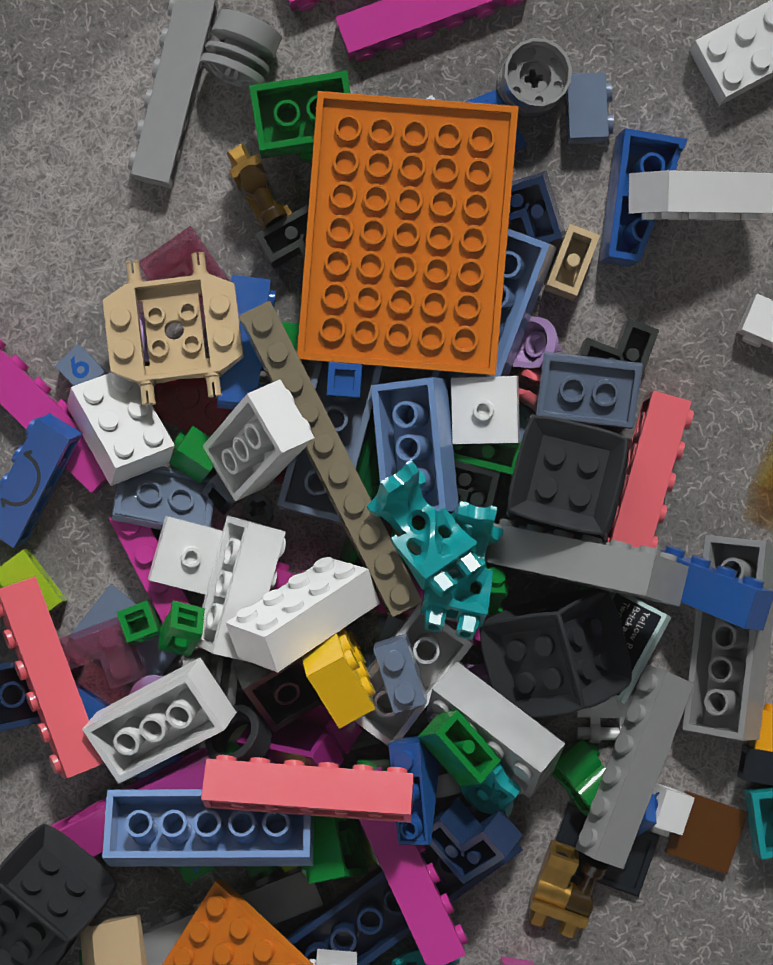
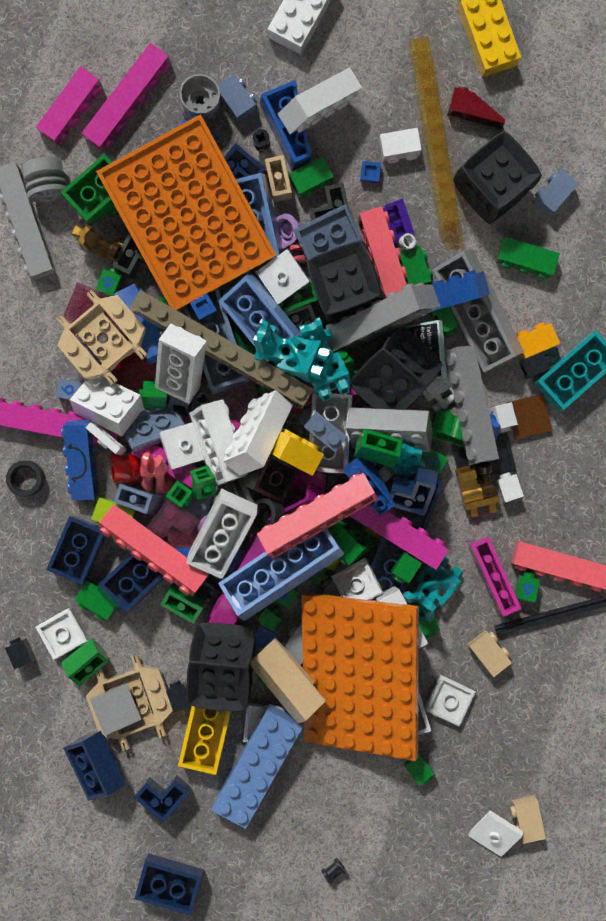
camera: 30 degrees left, 0 degrees up
(43, 787) = (185, 606): none -> green brick
(75, 589) = (138, 499): none -> sand blue brick
(85, 477) = (106, 439): none -> white plate
(85, 533) = (125, 468): none -> red helmet
(92, 783) = (209, 590): none -> black tile
(126, 564) = (153, 473): none -> coral piece
(127, 899) = (264, 636): none -> blue plate
(153, 880) = (270, 617): none -> green brick
(237, 255) = (110, 282): none -> green brick
(307, 914) = (358, 581): none -> white plate
(388, 938) = (405, 568): none -> green brick
(530, 812) = (434, 461): none -> green brick
(583, 181) = (258, 135): none -> black bush
(611, 915) = (509, 487): none -> white brick
(619, 292) = (311, 178): none -> green brick
(680, 624) = (448, 320): none -> green brick
(684, 515) = (415, 265): none -> green brick
(698, 470) = (407, 241): none -> white hinge
(704, 434) = (399, 219): none -> dark purple hinge
(709, 337) = (370, 172): none -> blue plate

